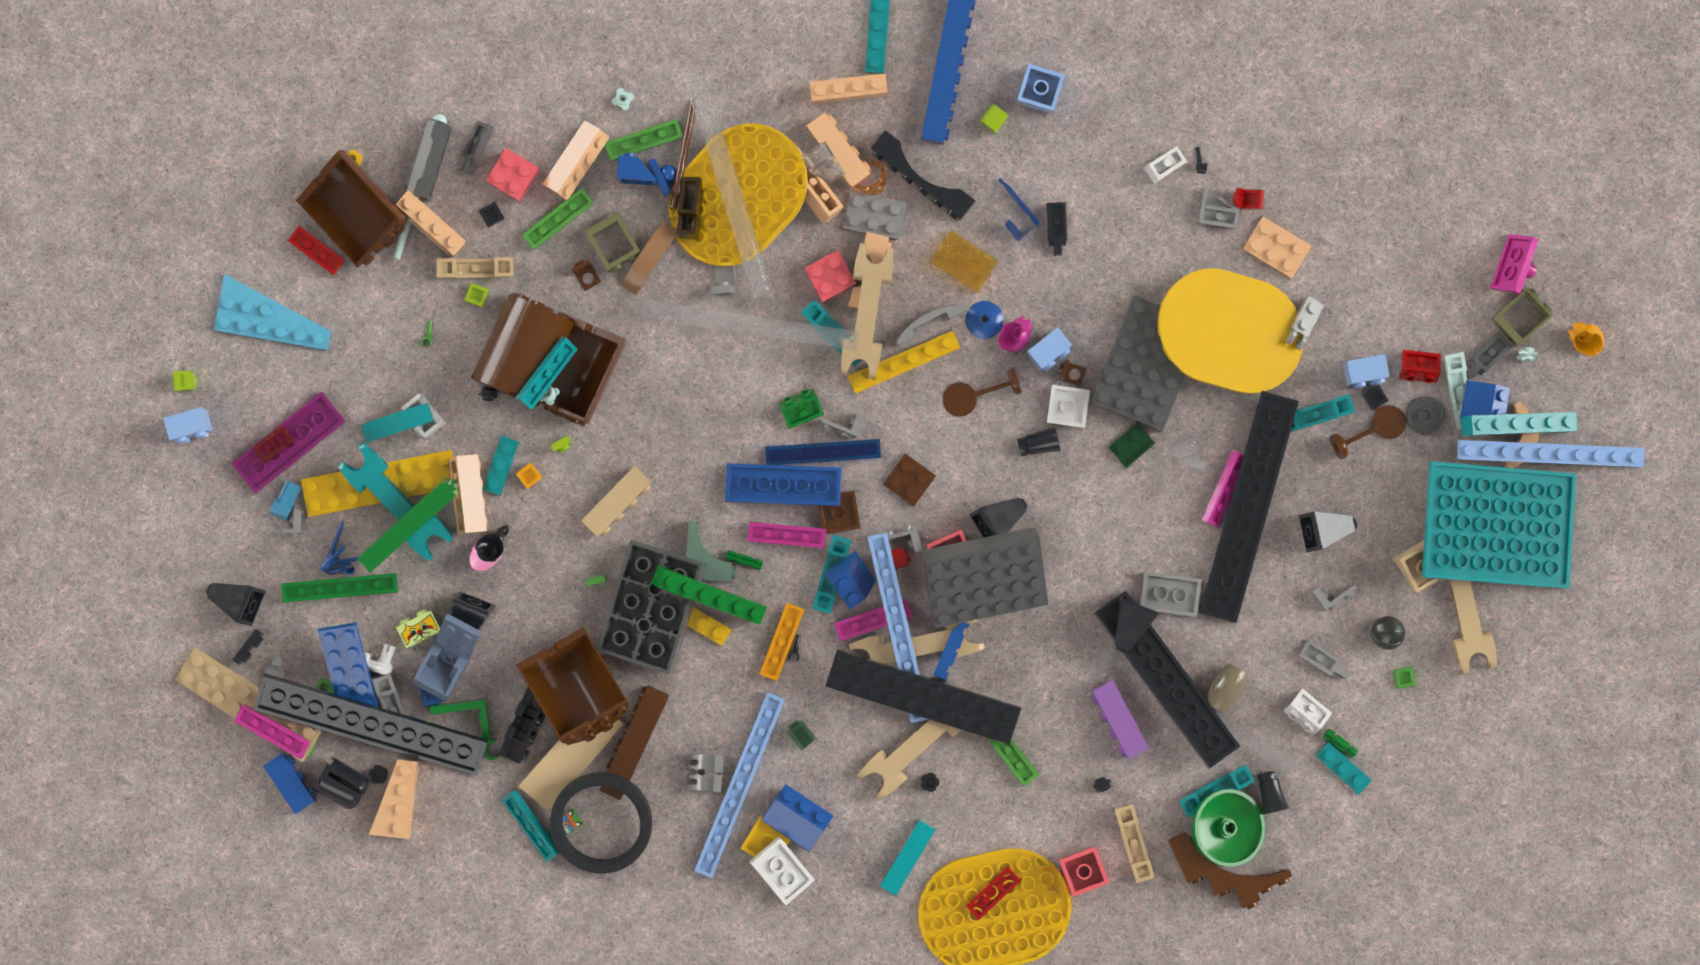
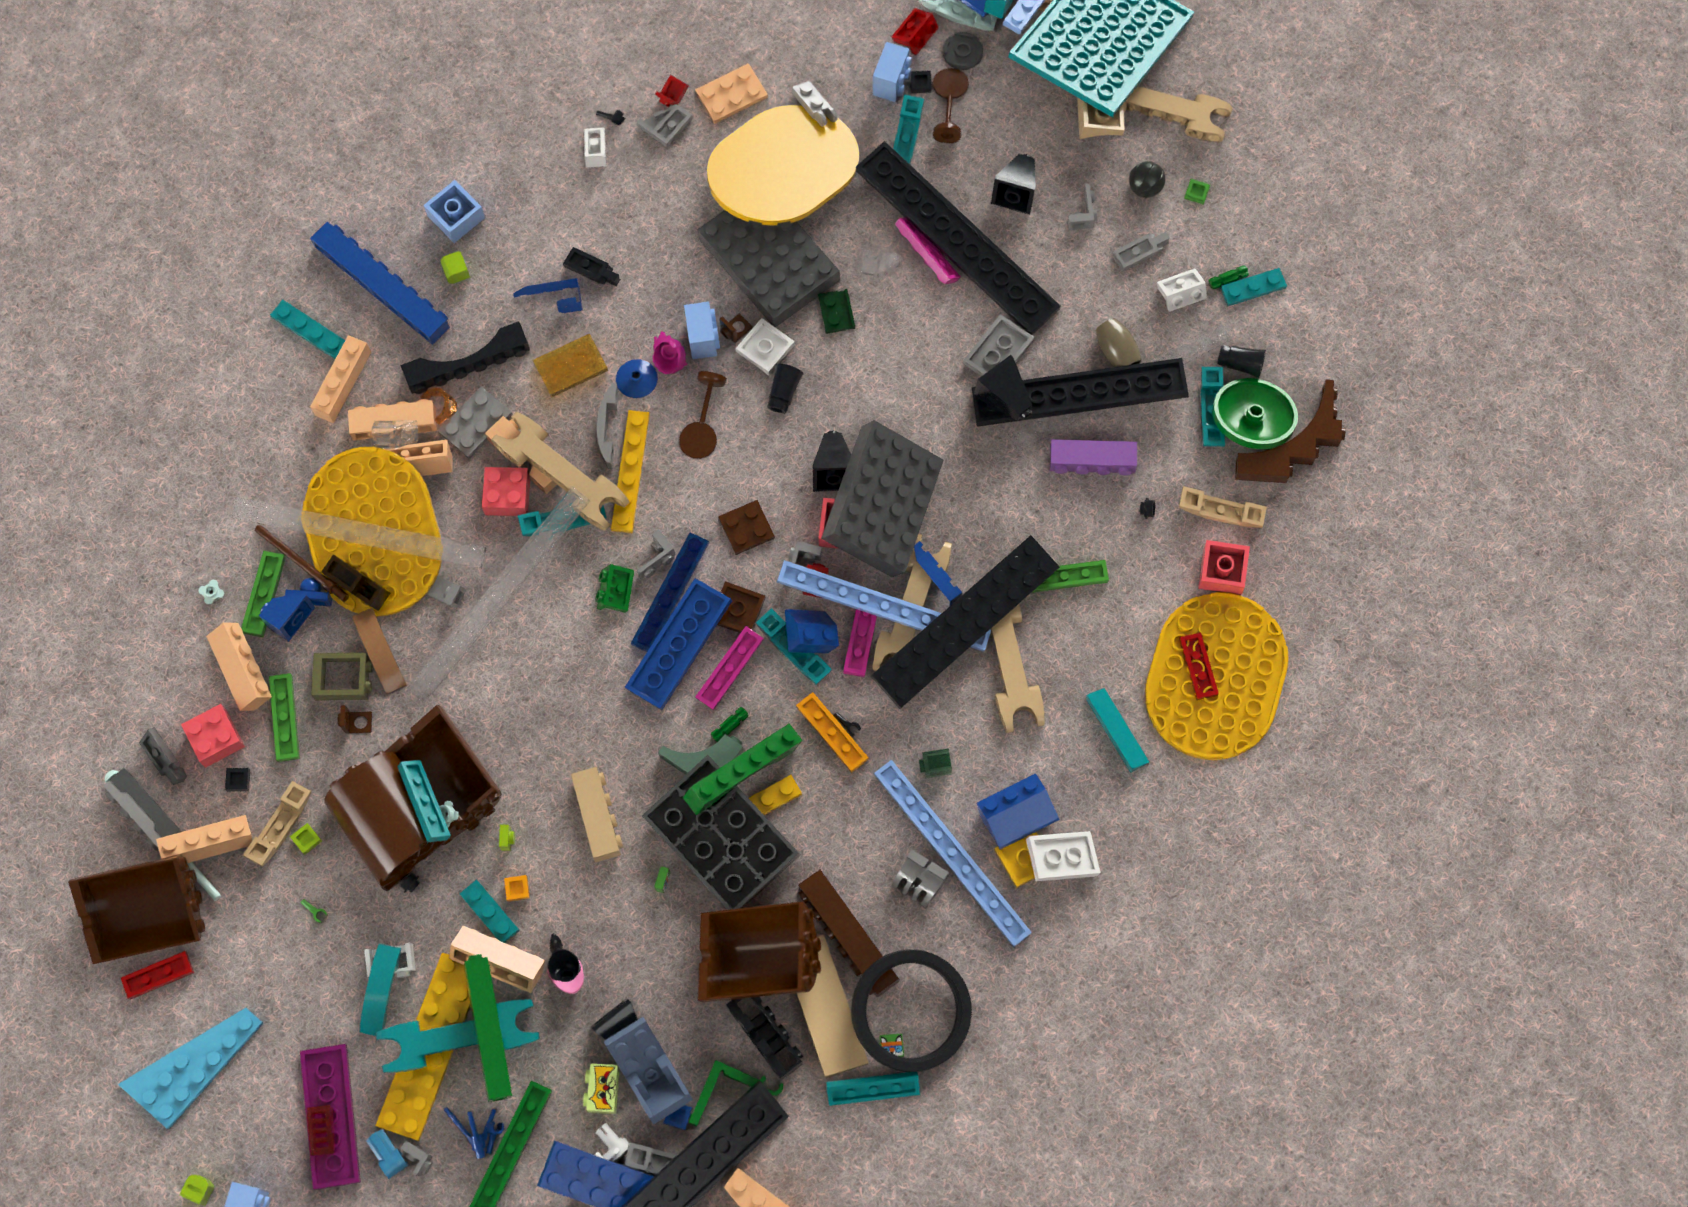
camera: 60 degrees left, 15 degrees down
(930, 777) = (1049, 663): black plate -> none

